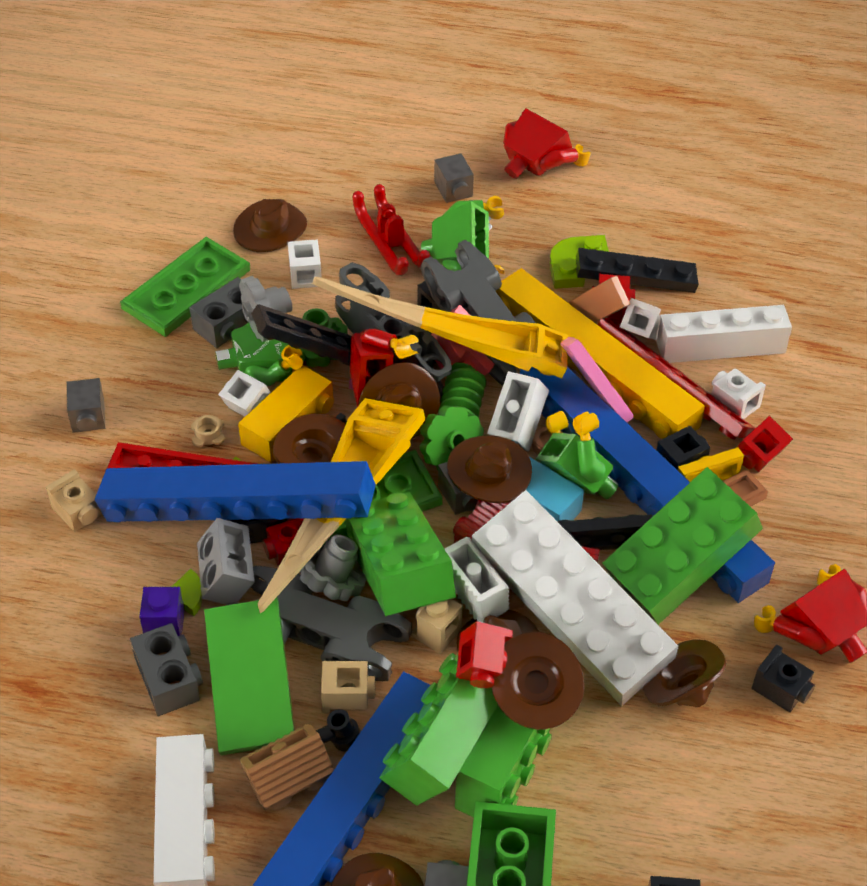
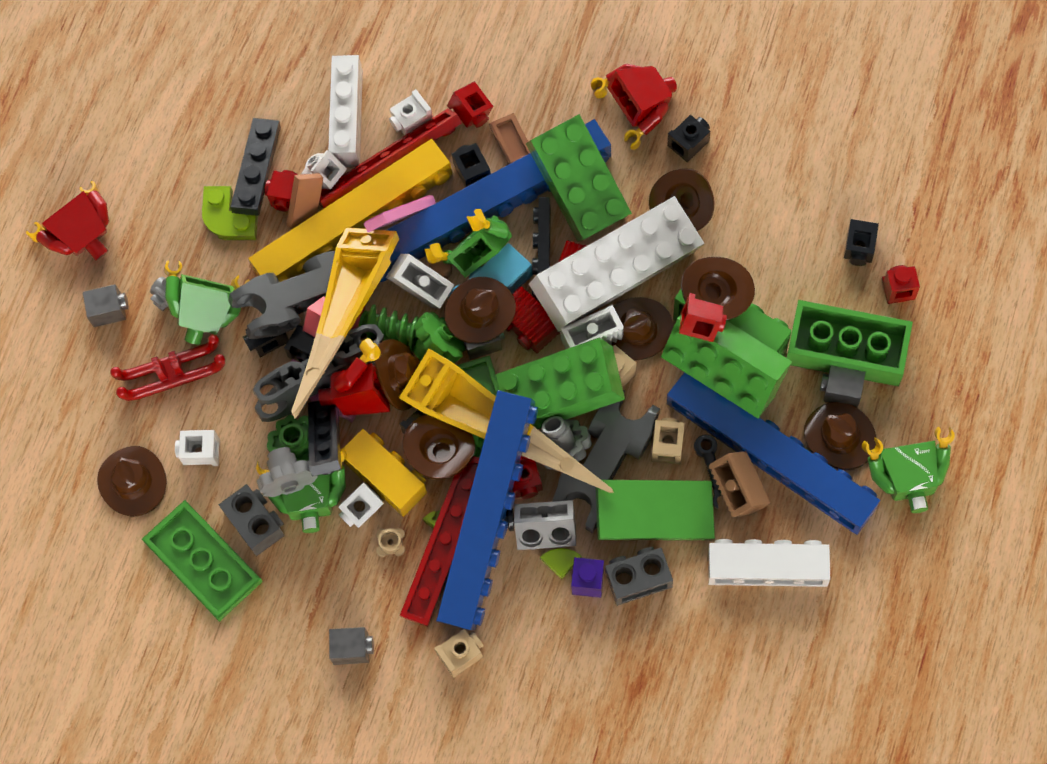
camera: 75 degrees left, 20 degrees up
(722, 464) = (489, 148): yellow plate -> none

